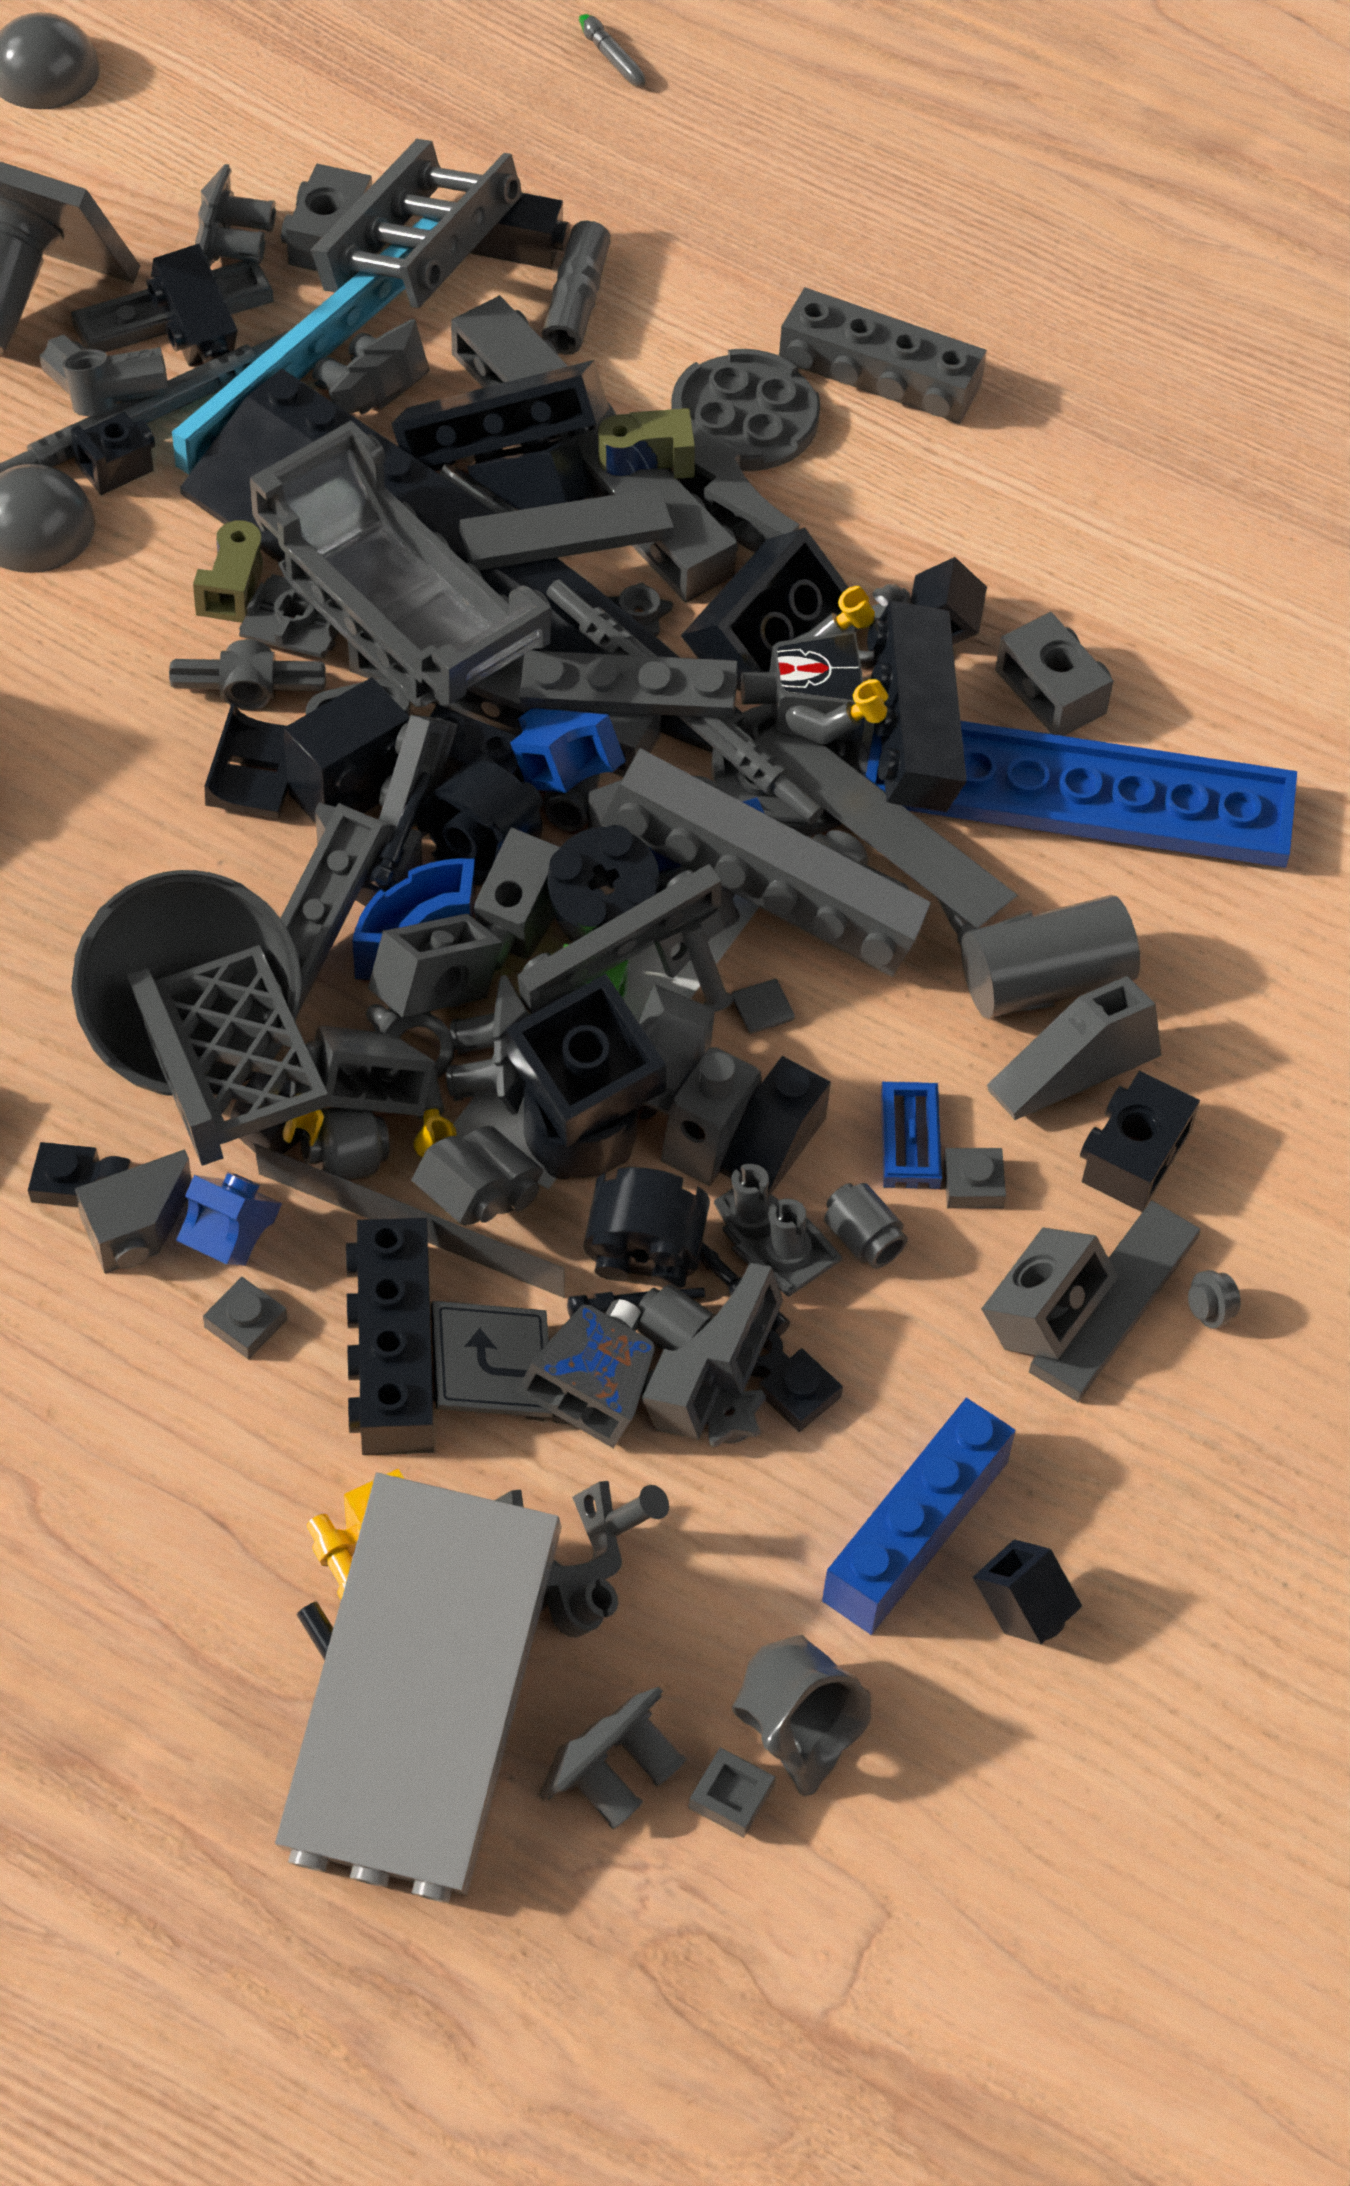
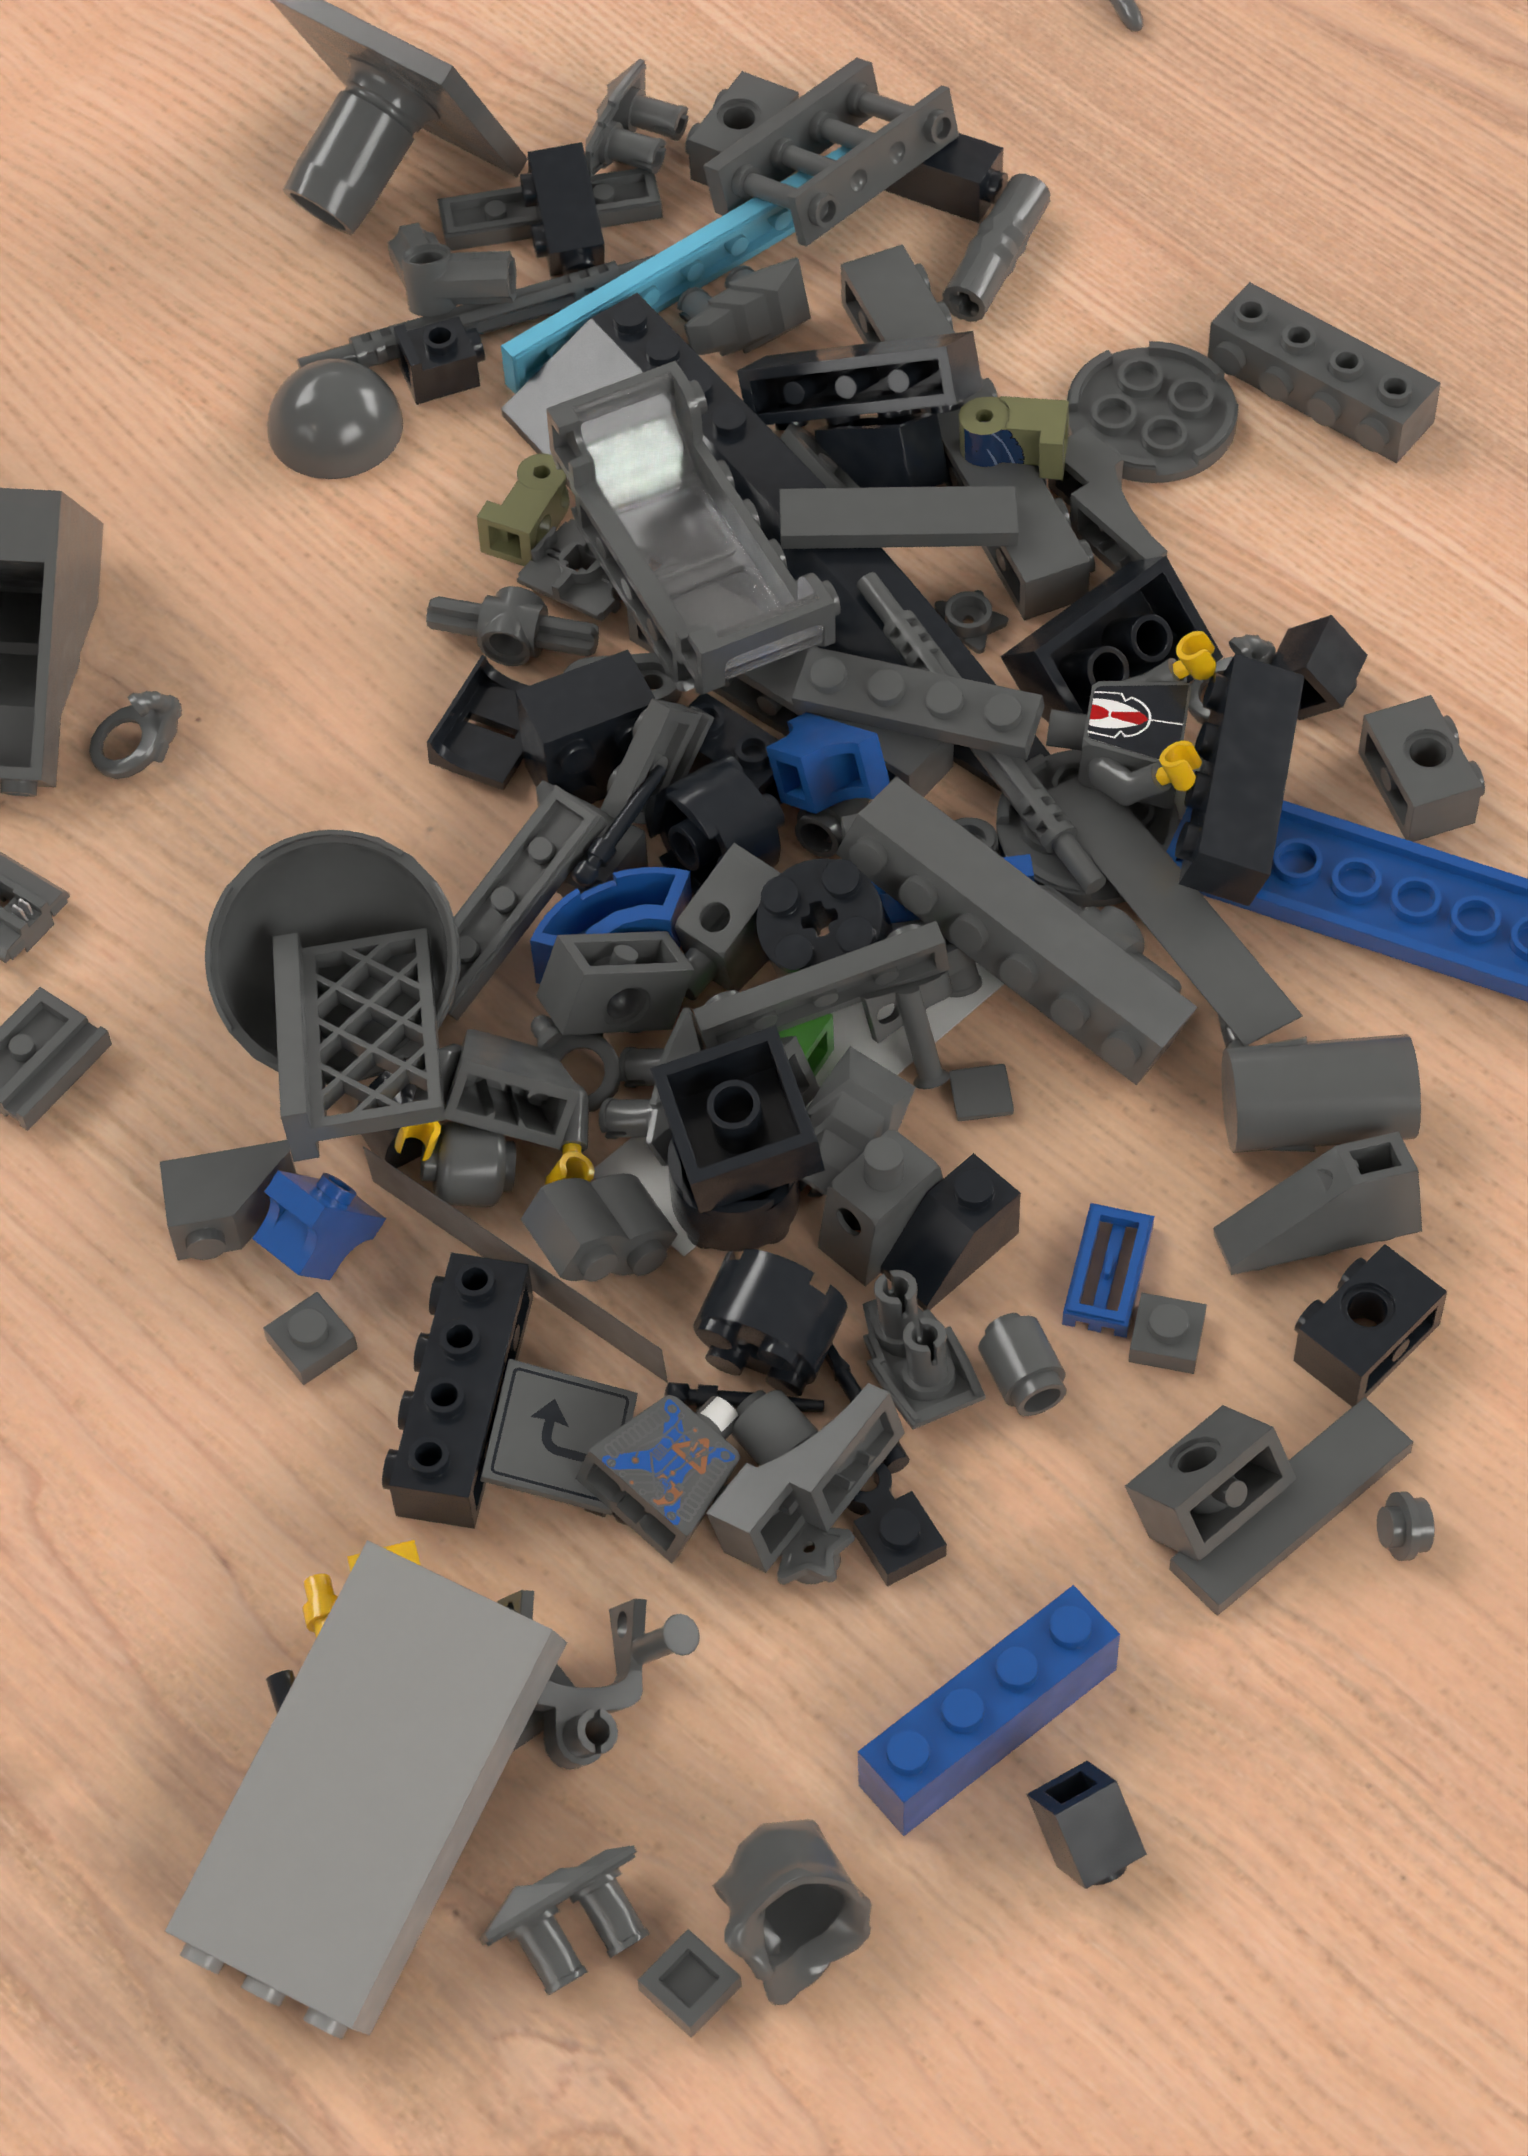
camera: 20 degrees right, 0 degrees up
(67, 1167) = (166, 1136): black plate -> none

